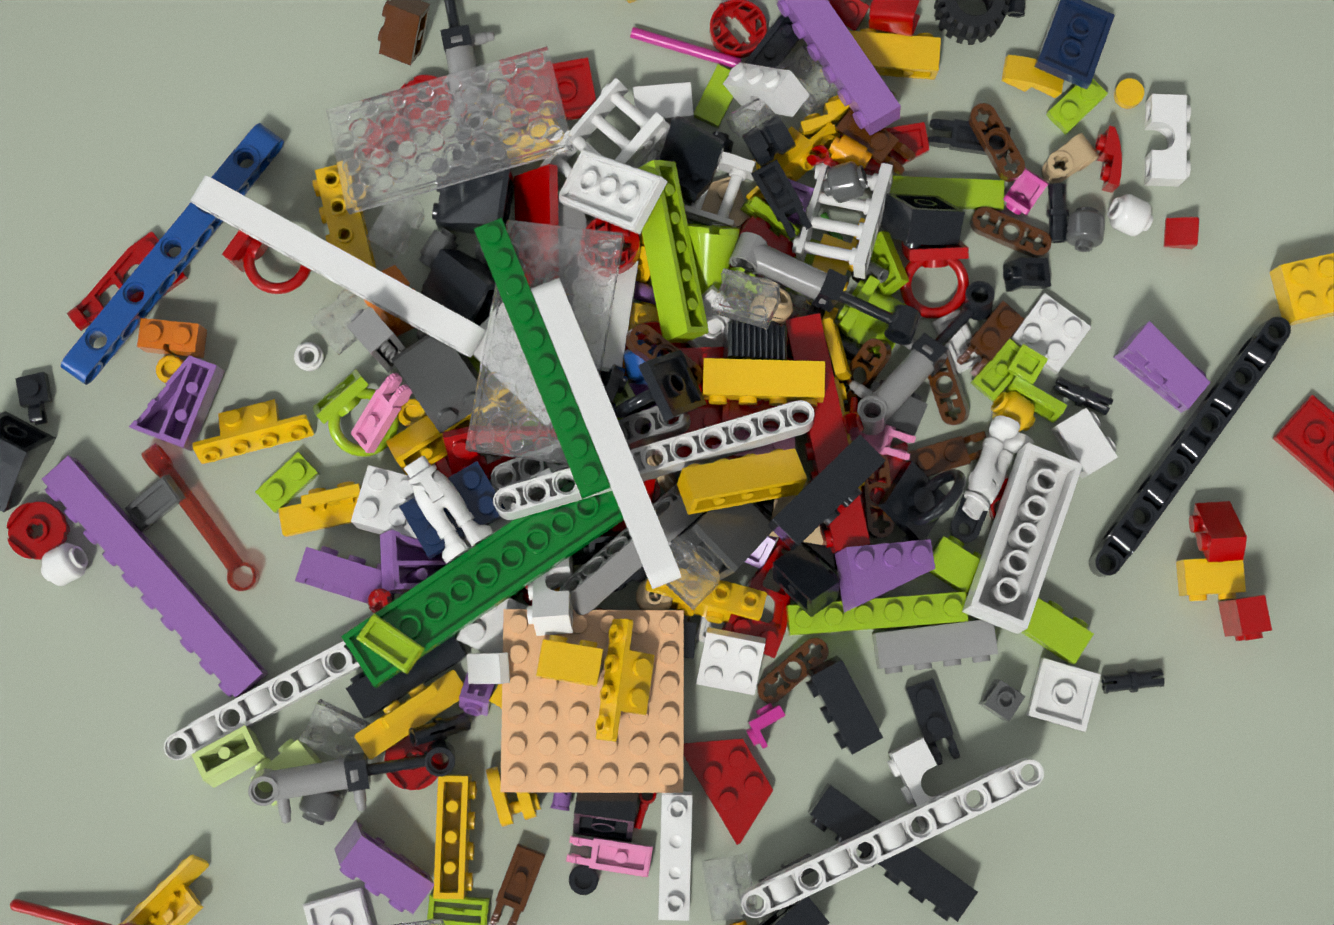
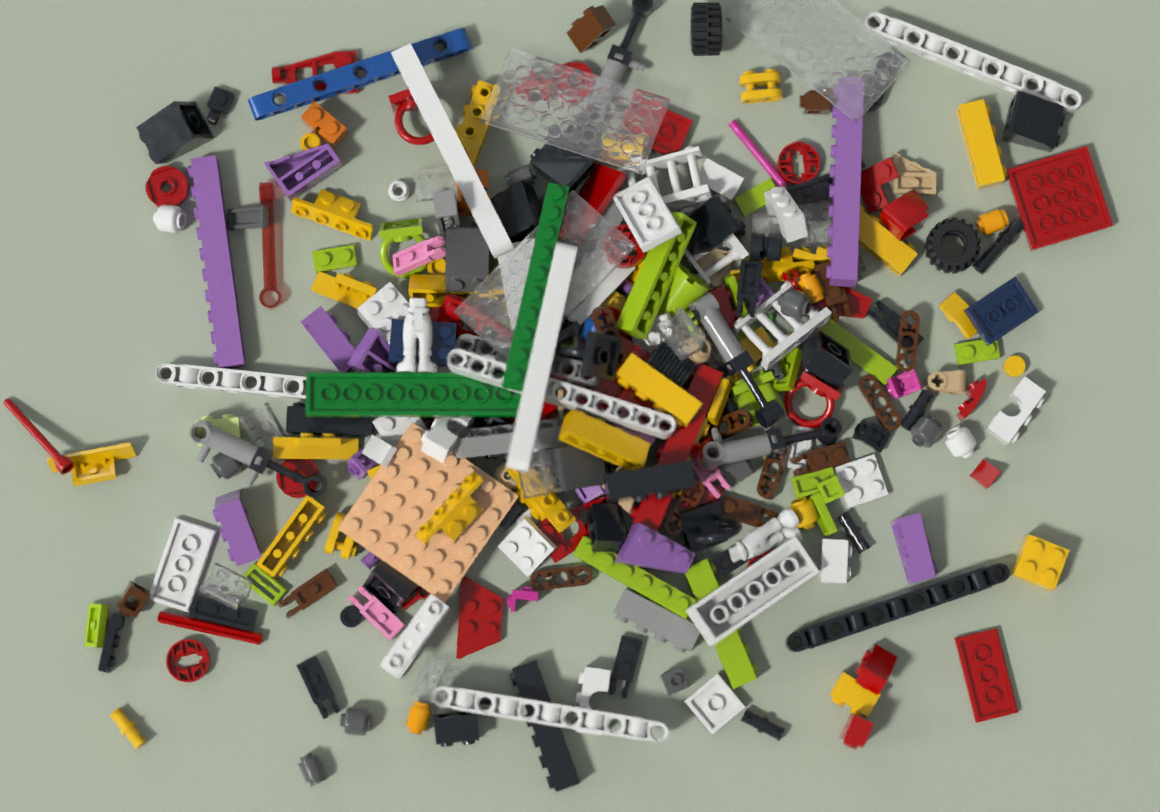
camera: 35 degrees right, 0 degrees up
(229, 756) = (191, 399): yellowish green brick -> none
(379, 599) = (342, 366): red axle -> none
(390, 643) = (332, 396): lime tile -> none
(395, 226) = (505, 146): clear bracket -> none
(439, 729) = (326, 468): black pin -> none
(569, 661) = (430, 479): yellow brick -> none
(843, 705) = (576, 618): black brick -> none

